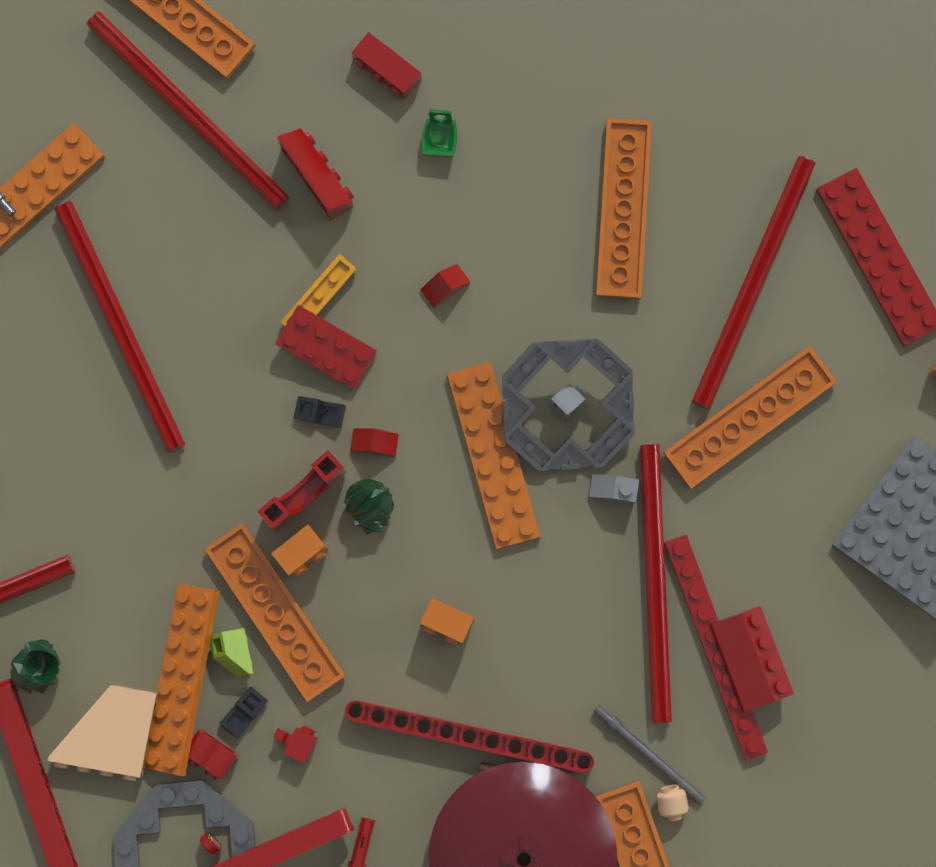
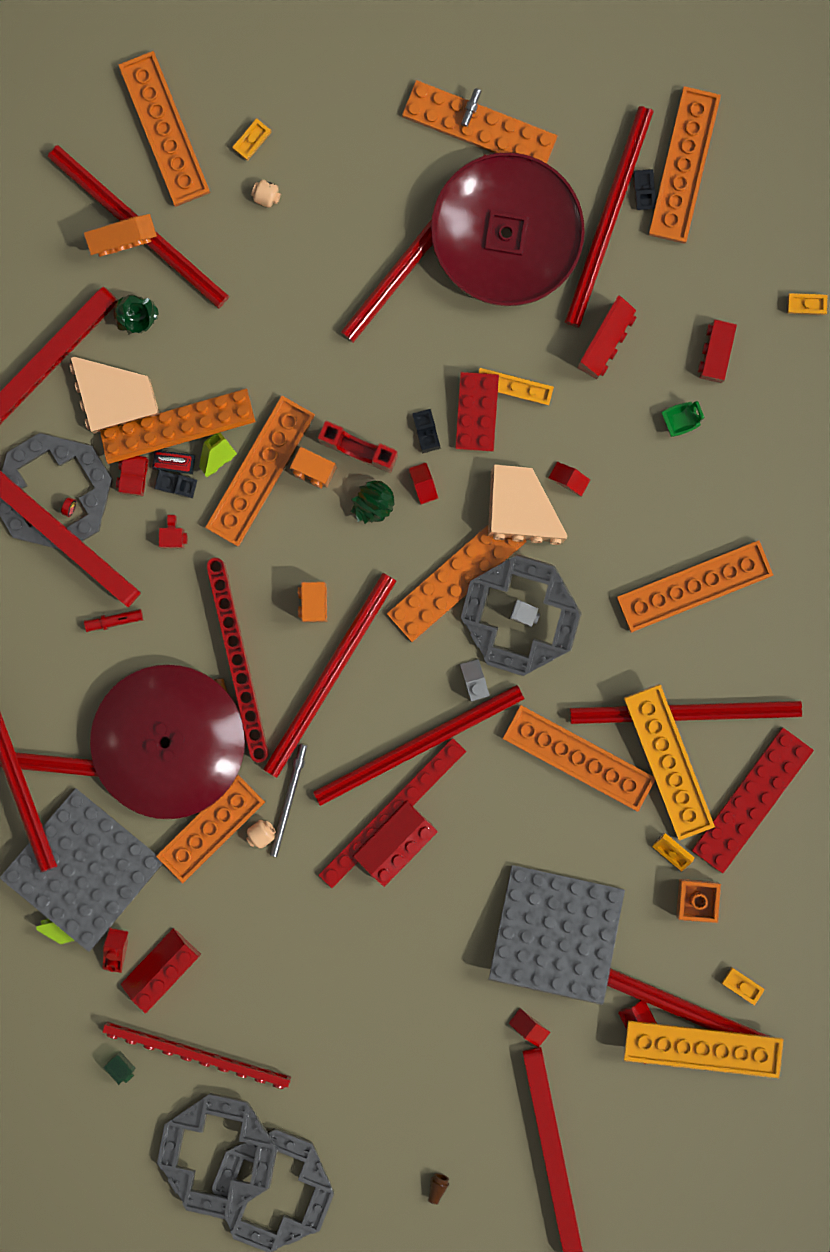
camera: 70 degrees right, 5 degrees up
(137, 182) = (514, 195): none -> dark red dish
(177, 60) = (644, 189): none -> black slope
(218, 702) = (173, 462): none -> slope
(452, 349) = (521, 508): none -> light nougat slope
(534, 643) = (329, 675): none -> red axle
(799, 323) = (669, 762): none -> light orange plate
(897, 365) = (673, 852): none -> light orange plate

